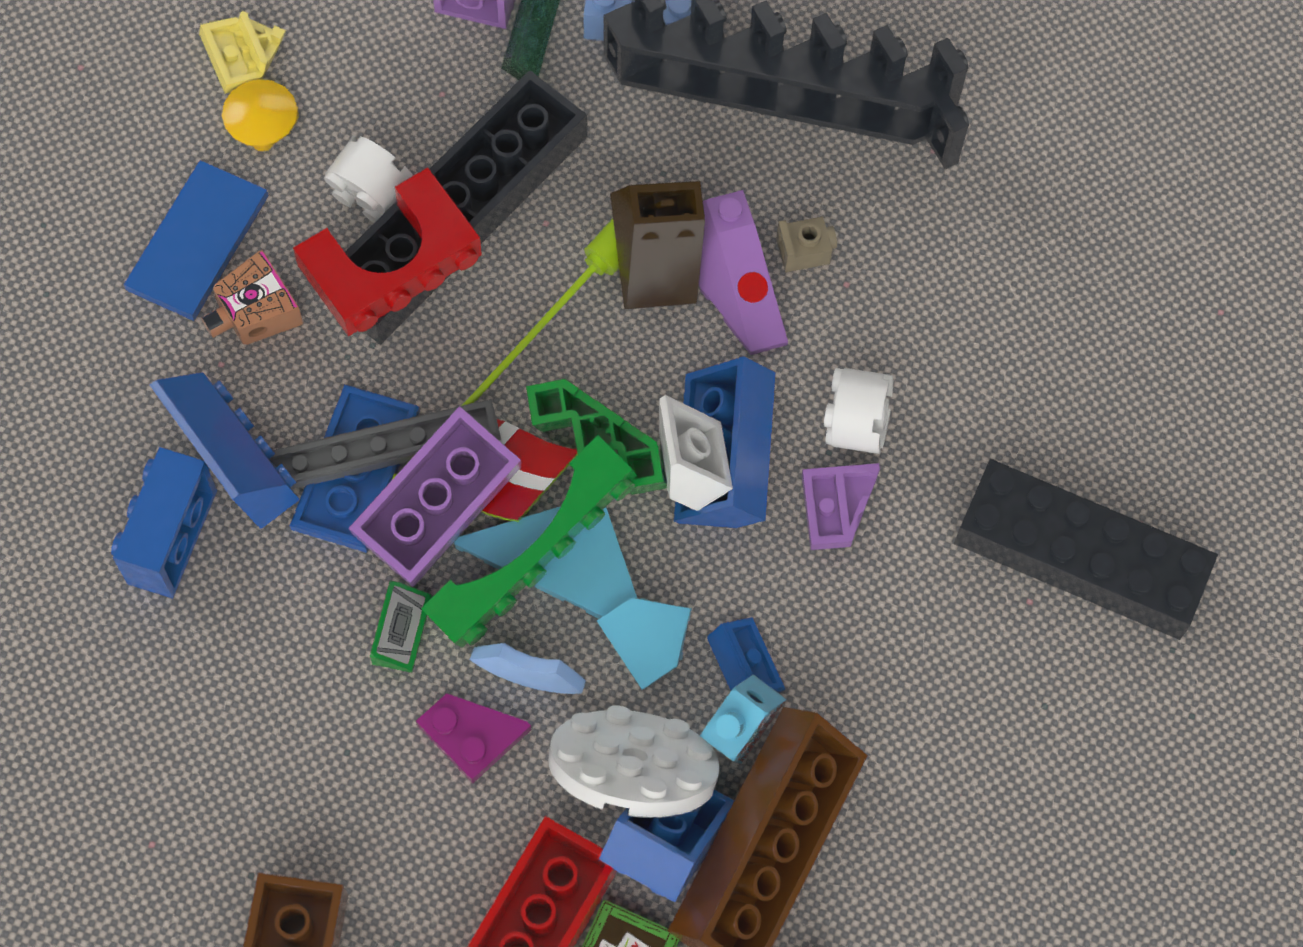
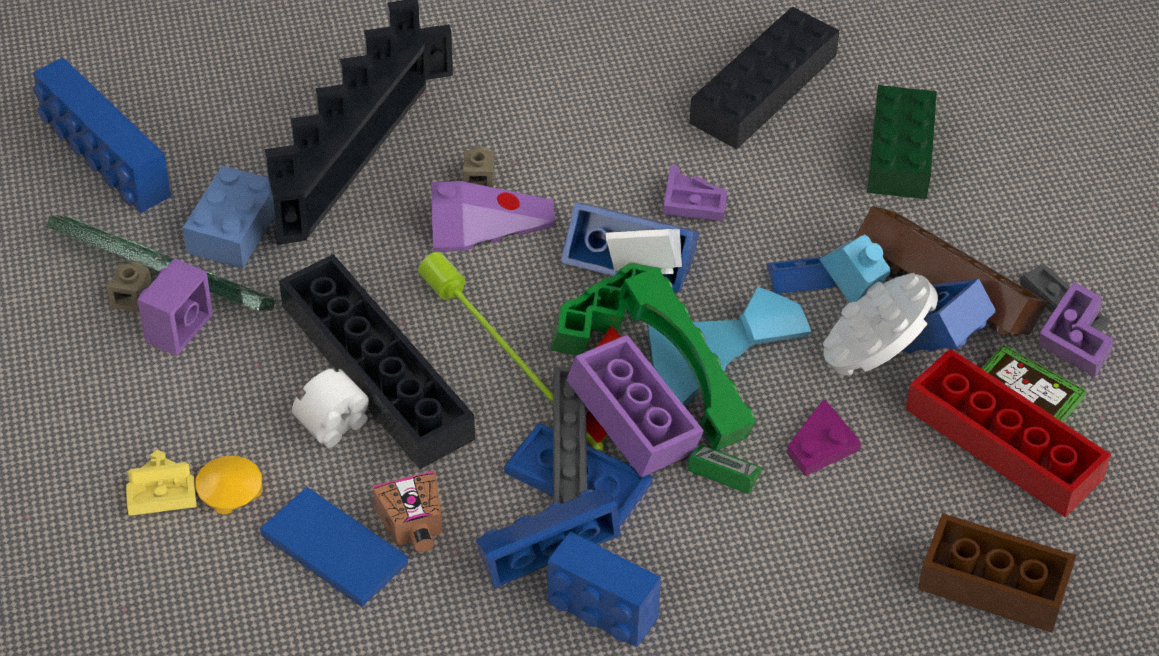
camera: 75 degrees left, 20 degrees down
(363, 296) = (424, 350): red arch -> none
(527, 670) = (782, 390): light blue tile -> none
(659, 242) = (452, 232): dark brown slope -> none
(859, 410) = (630, 160): white brick -> none
(1015, 748) = (902, 142): none -> dark green brick

